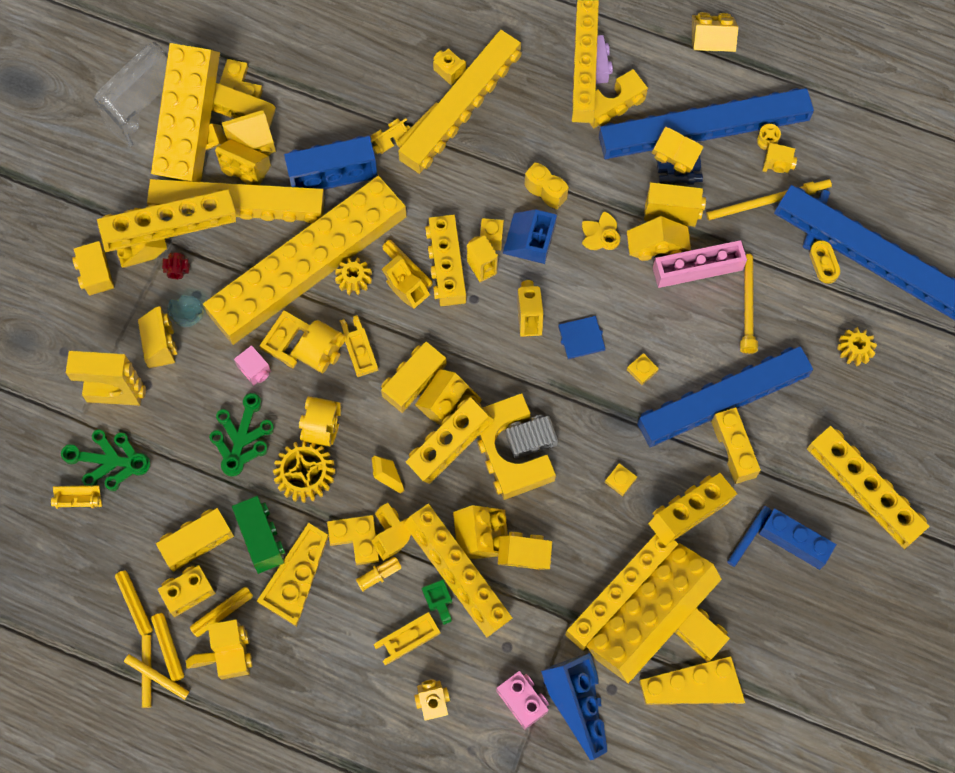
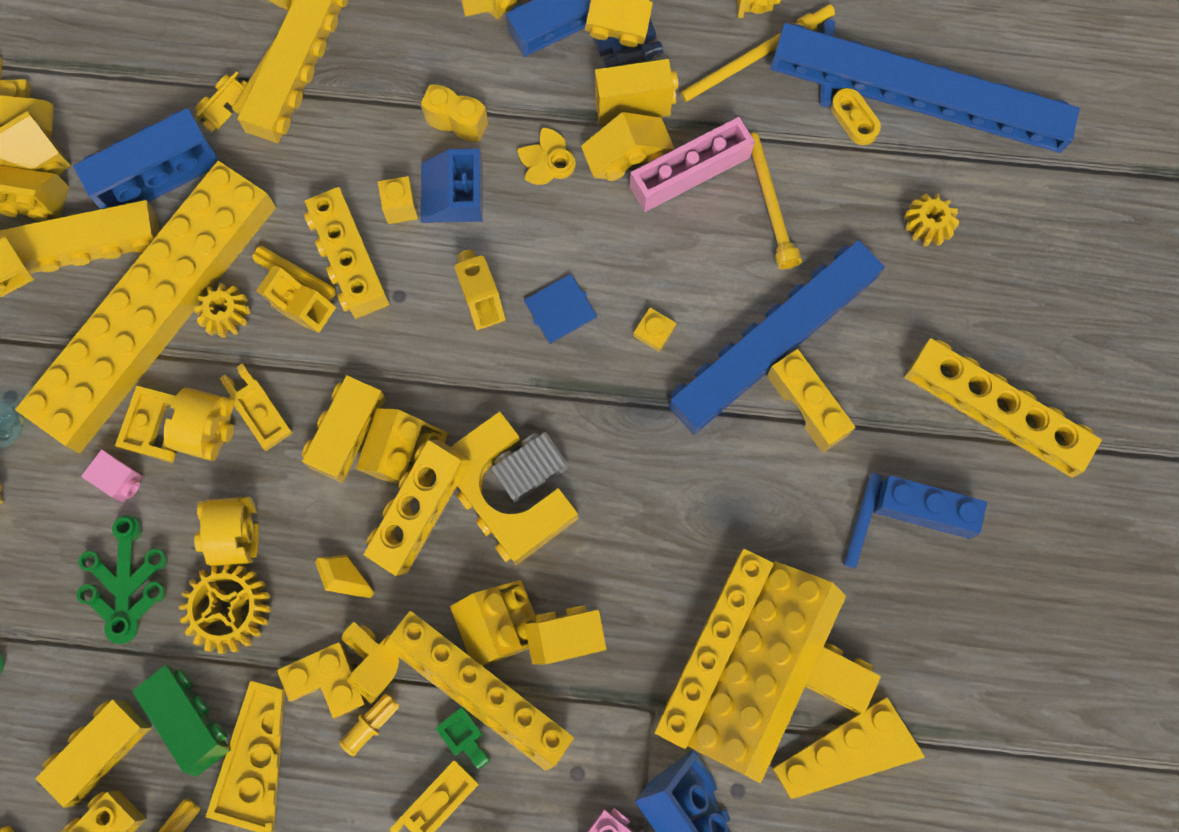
camera: 15 degrees left, 5 degrees up
(482, 258) = (393, 236): yellow brick -> none
(620, 479) = (668, 491): yellow plate -> none
(692, 508) = (757, 546): yellow brick -> none

